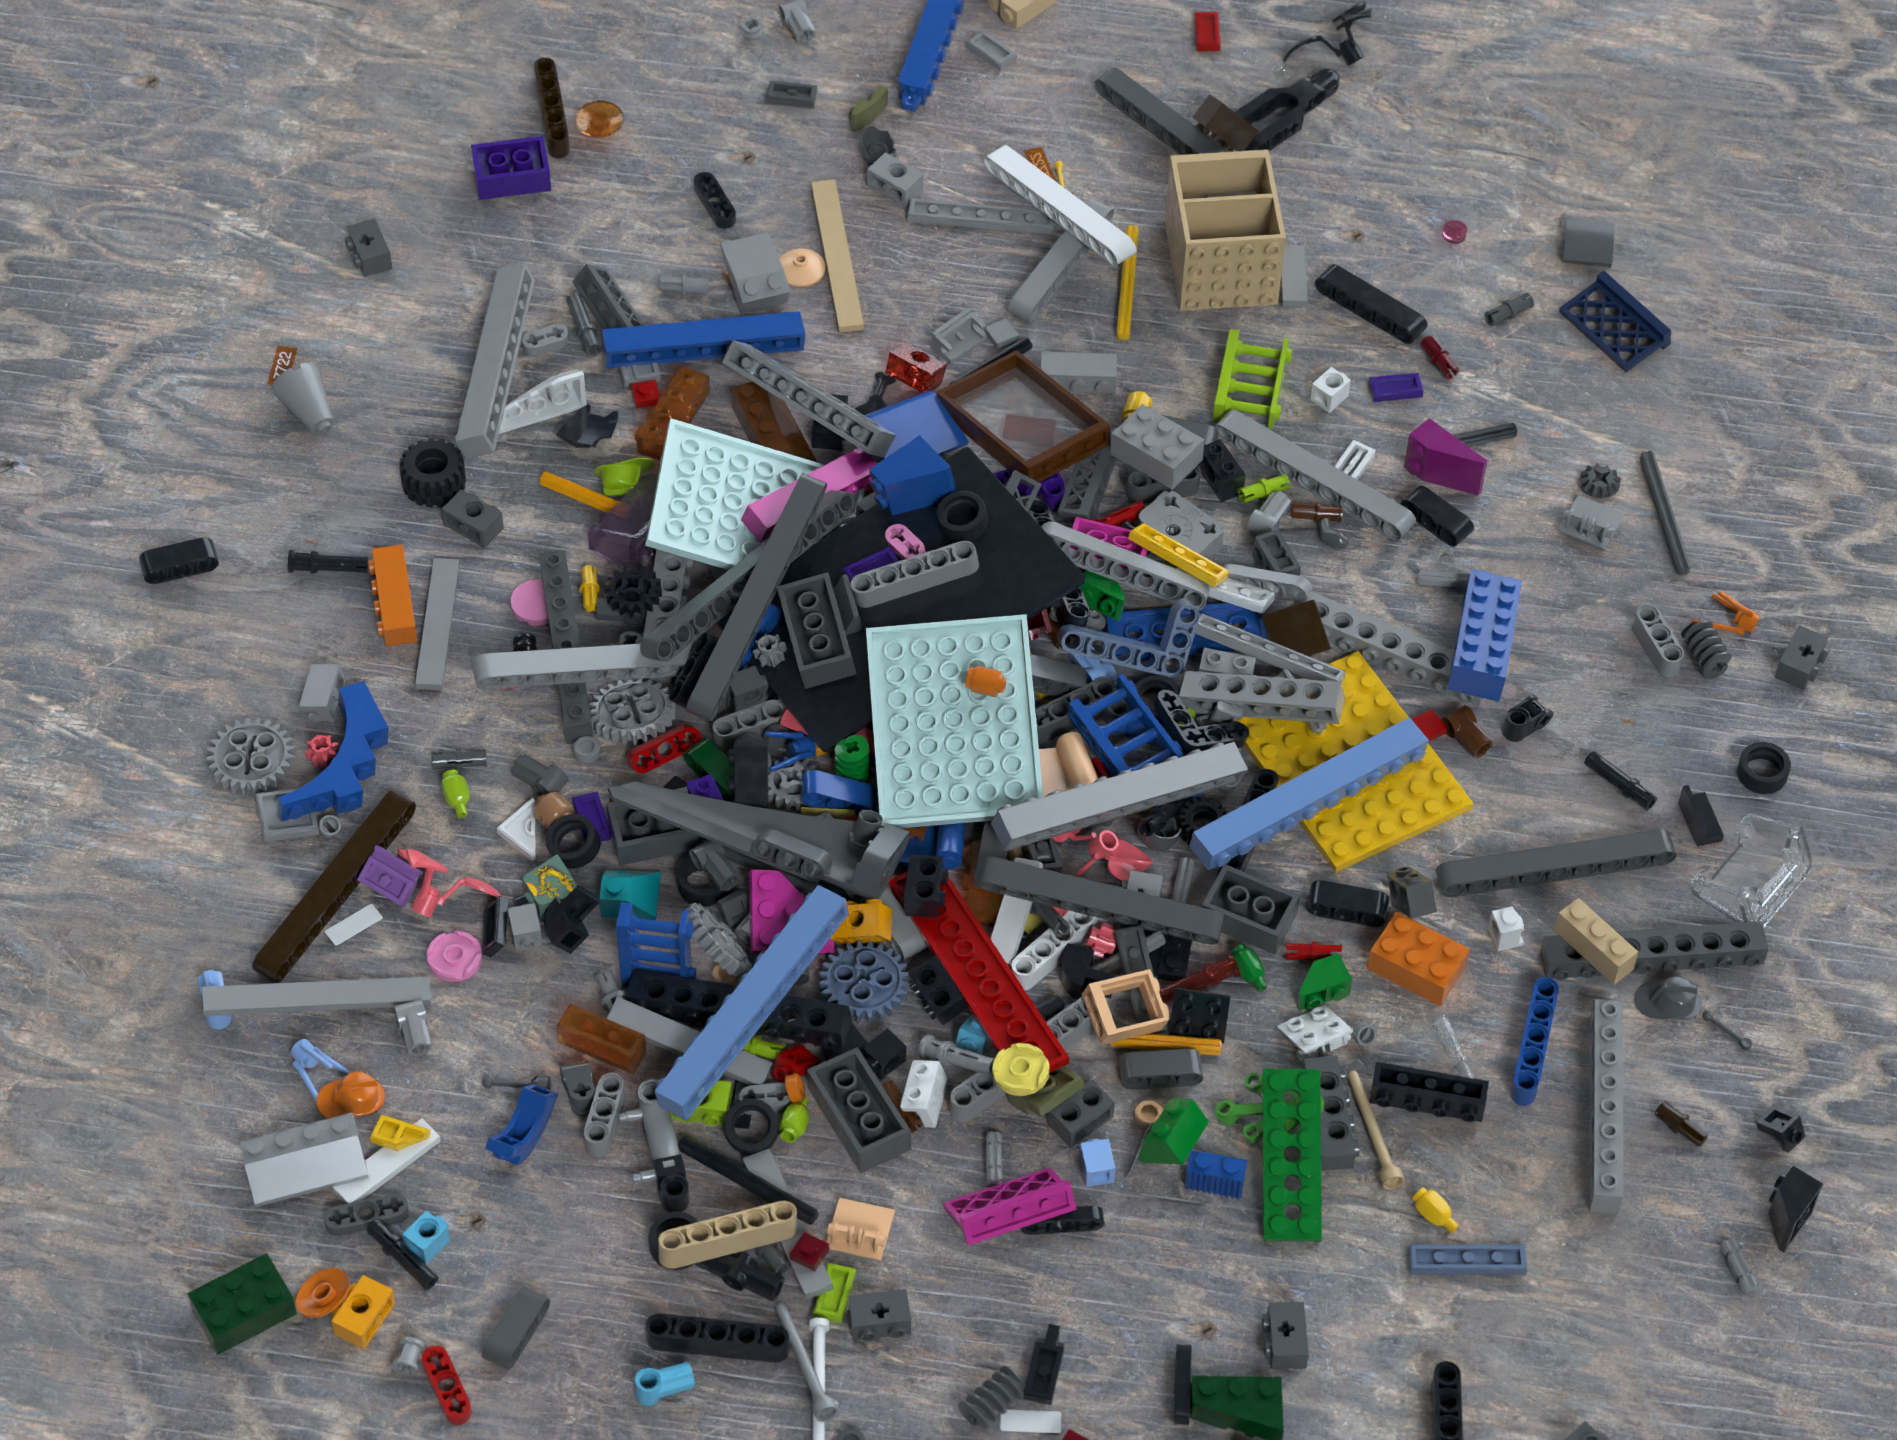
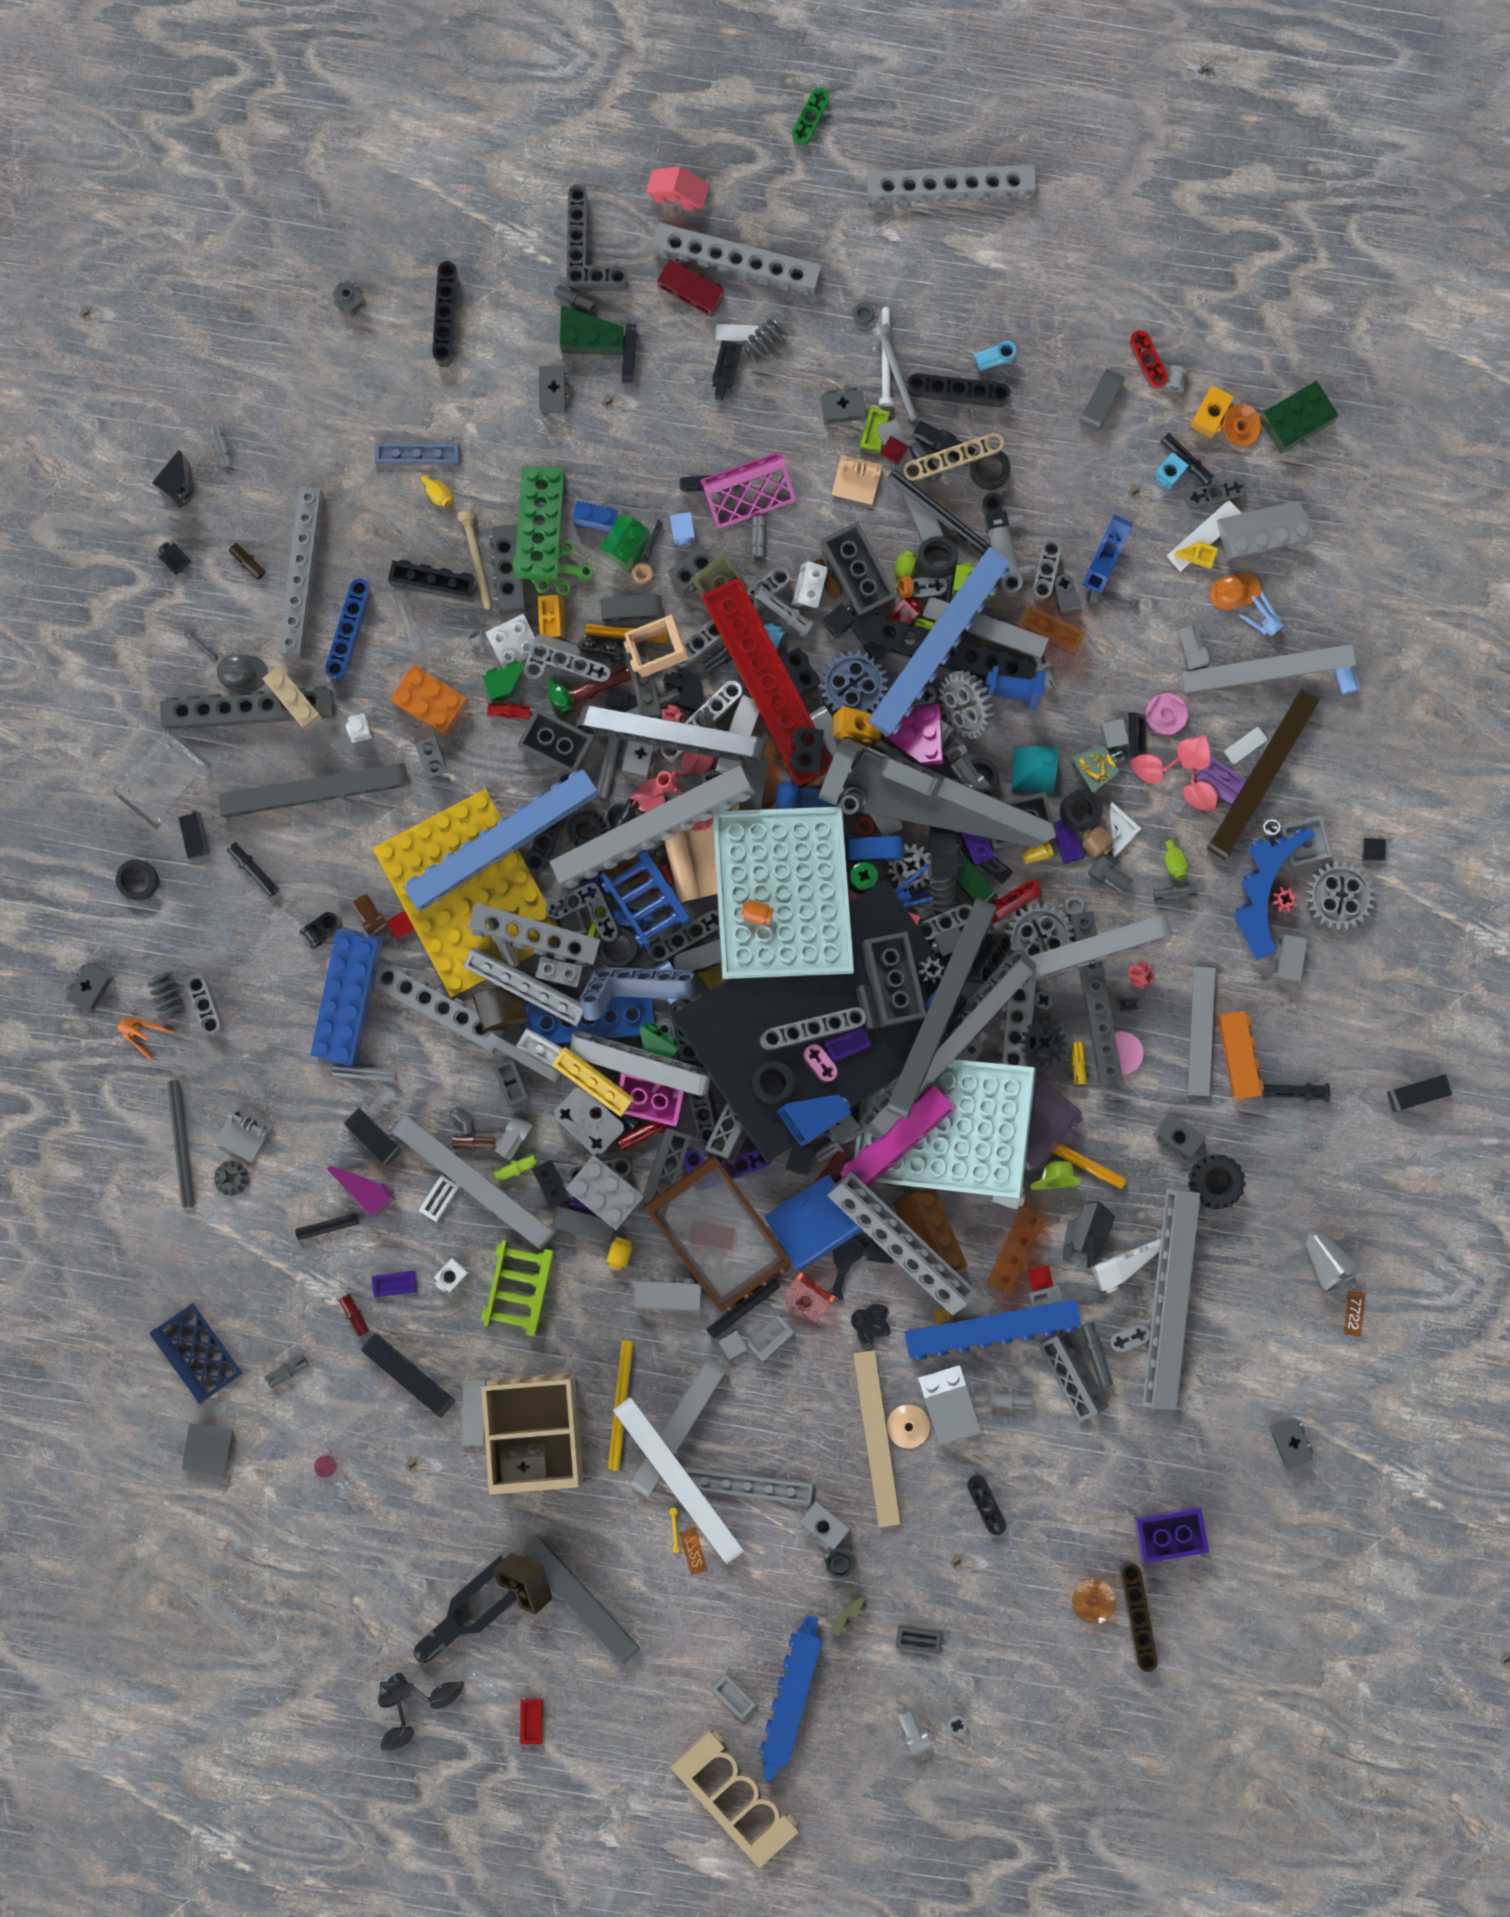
camera: 175 degrees left, 30 degrees up
(201, 809) = (1373, 849): none -> black plate
(565, 918) = (1083, 734): black brick -> none
(844, 352) = (874, 1323): none -> black plate
(1020, 1069) = (737, 583): light yellow tile -> none
(1225, 712) = (563, 924): light grey tile -> none
(1251, 1002) = (568, 662): none -> light grey beam
(1264, 1048) = (552, 617): none -> light orange hinge
(1347, 903) = (479, 753): black beam -> none

